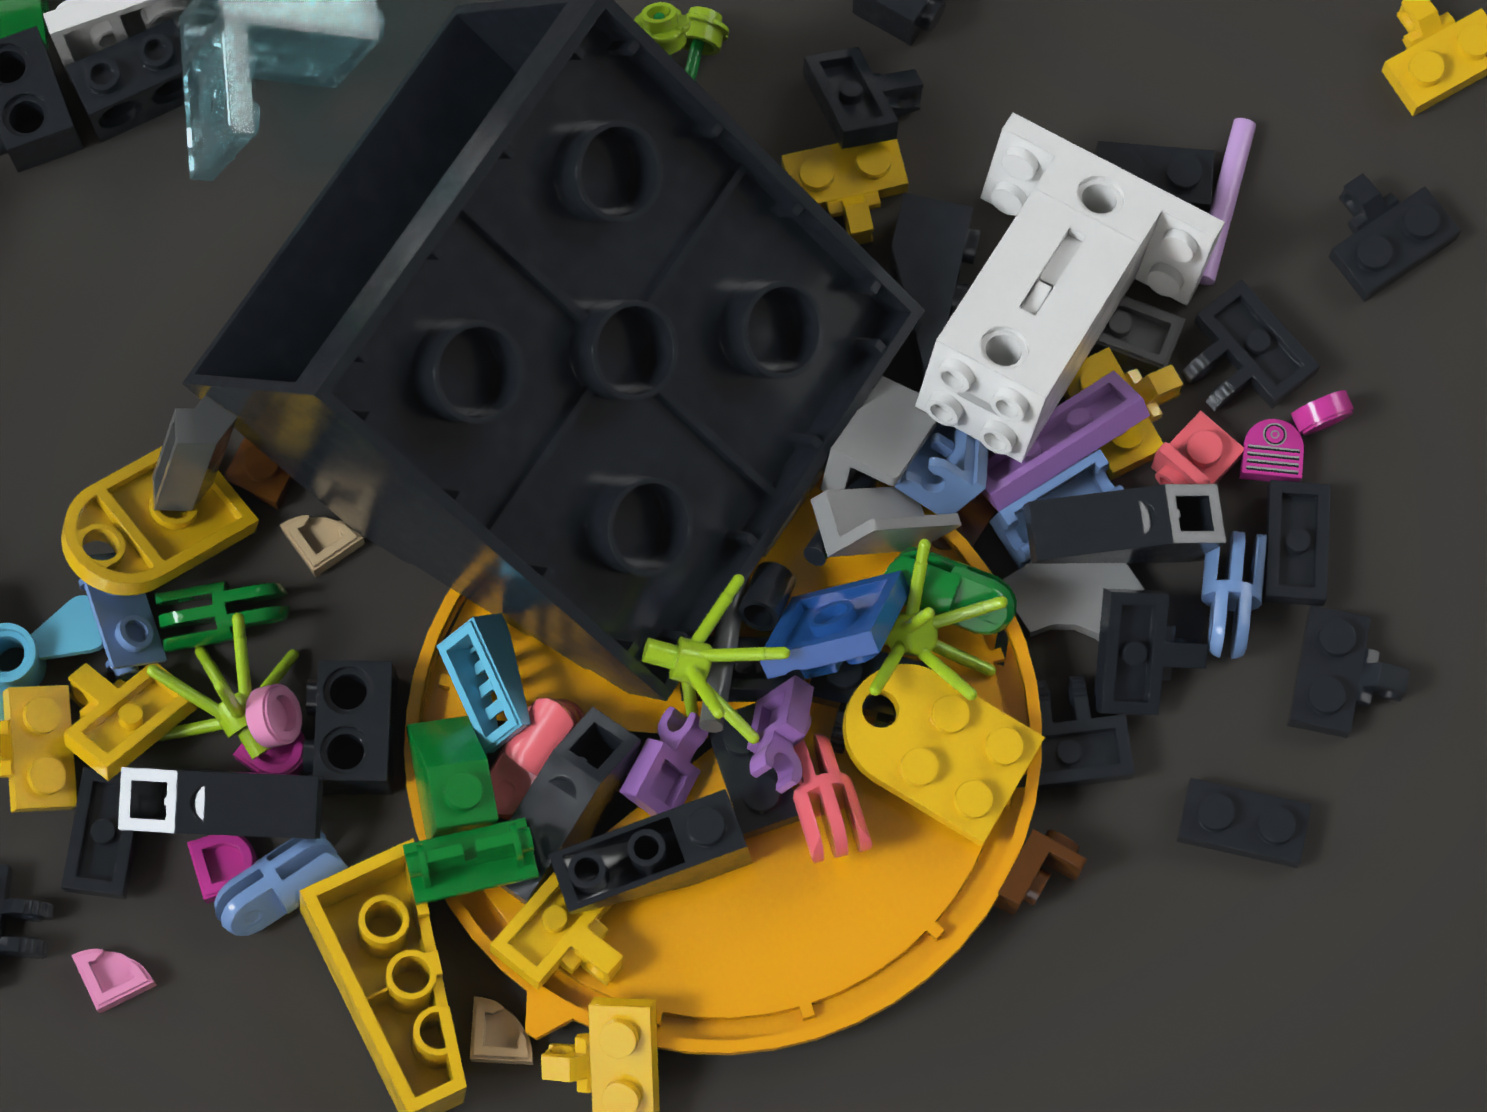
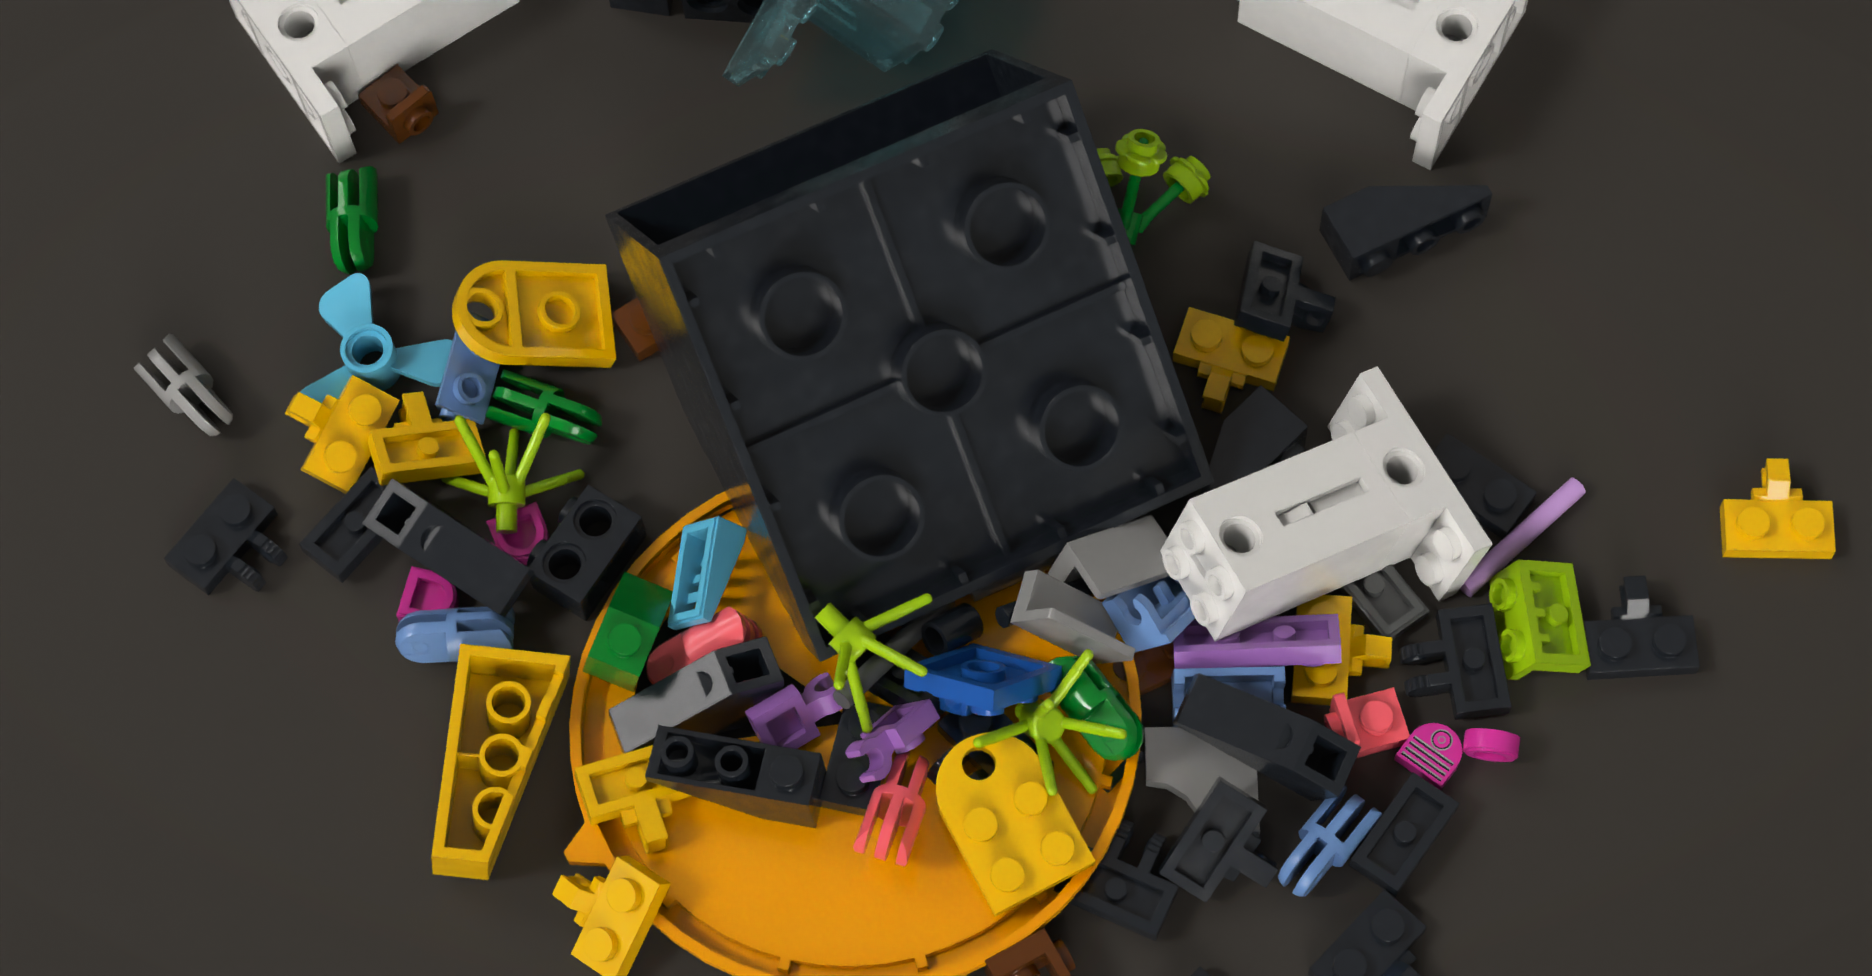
camera: 35 degrees right, 5 degrees down
(111, 977) = (294, 634): bright pink tile -> none
(191, 455) = (586, 277): dark grey piece -> none
(273, 715) = (529, 507): bright pink tile -> none
(321, 540) = (654, 402): tan tile -> none
(471, 861) = (599, 696): green hinge -> none
(498, 1035) = (545, 845): tan tile -> none
(1290, 268) = (1539, 618): none -> lime bracket

